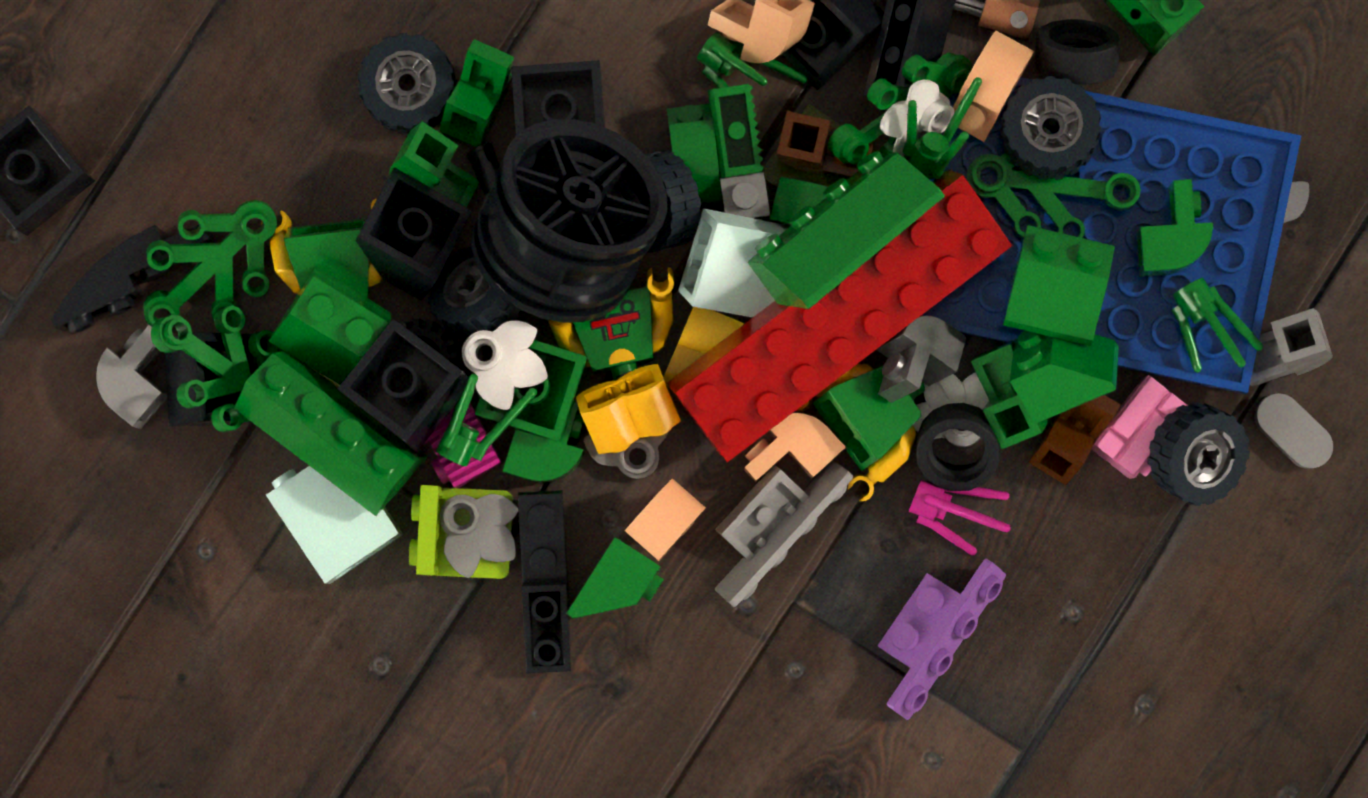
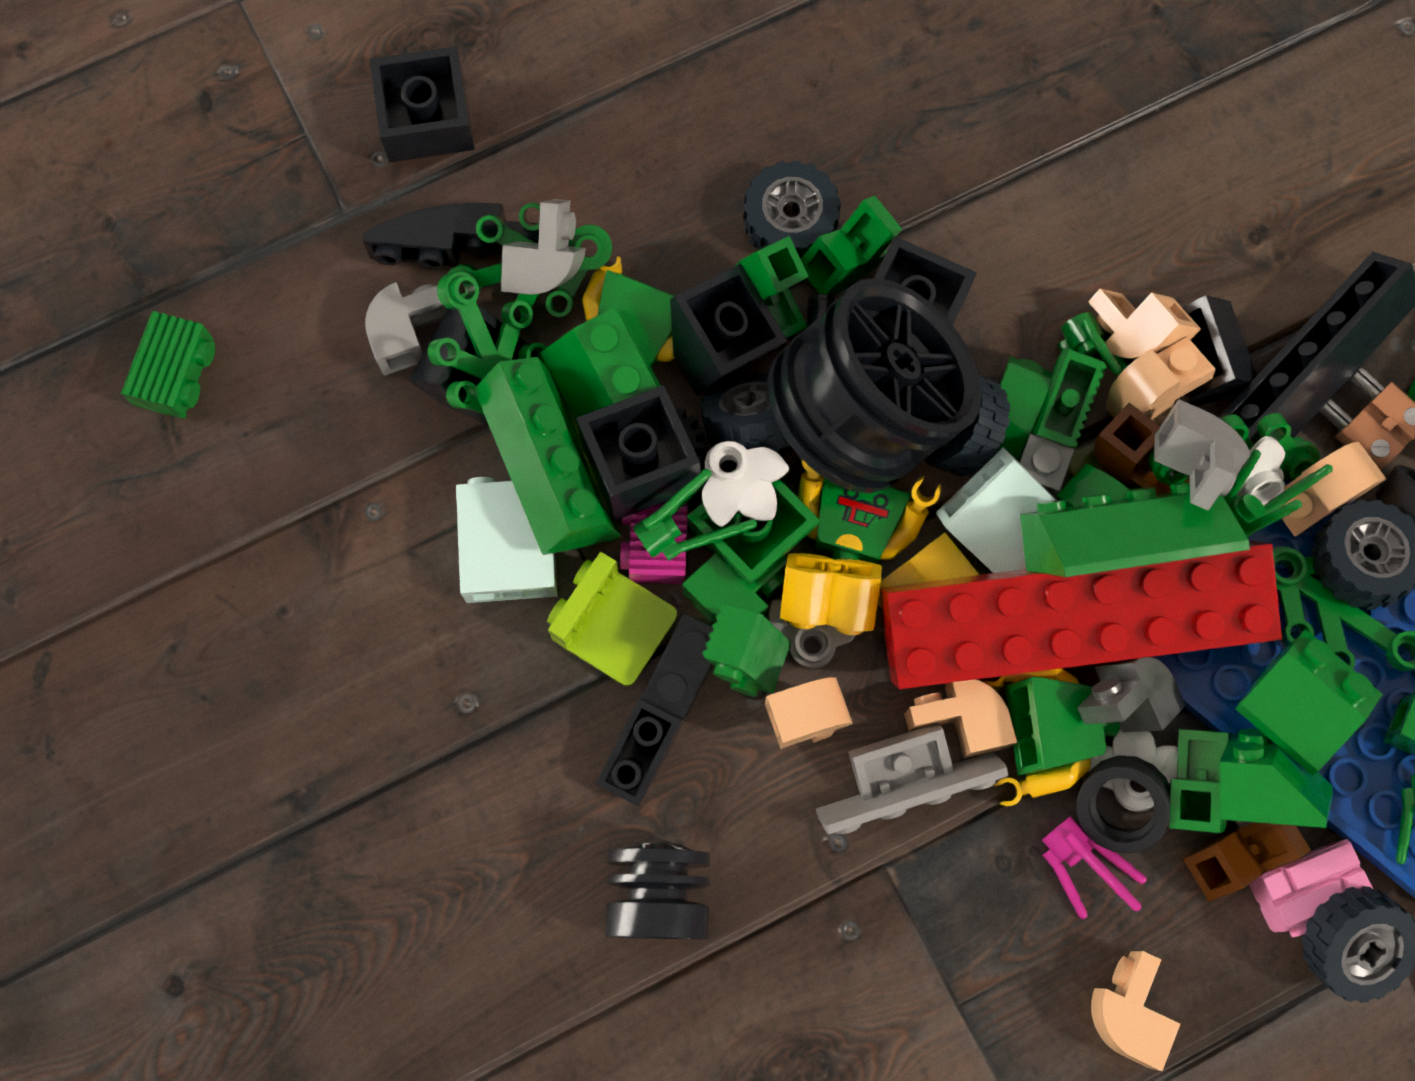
camera: 25 degrees right, 10 degrees down
(228, 262) = (545, 264): none -> light grey brick
(483, 535) = (630, 634): light grey plate -> none
(587, 498) = (746, 650): none -> green brick
(617, 582) = (730, 745): green slope -> none
(626, 732) = (657, 893): none -> black wheel
(800, 73) = (1159, 379): none -> light nougat brick
(865, 126) = (1202, 449): none -> light grey brick
(932, 630) = (1006, 967): medium lavender bracket -> none
(1049, 620) = (1125, 1021): none -> light nougat brick

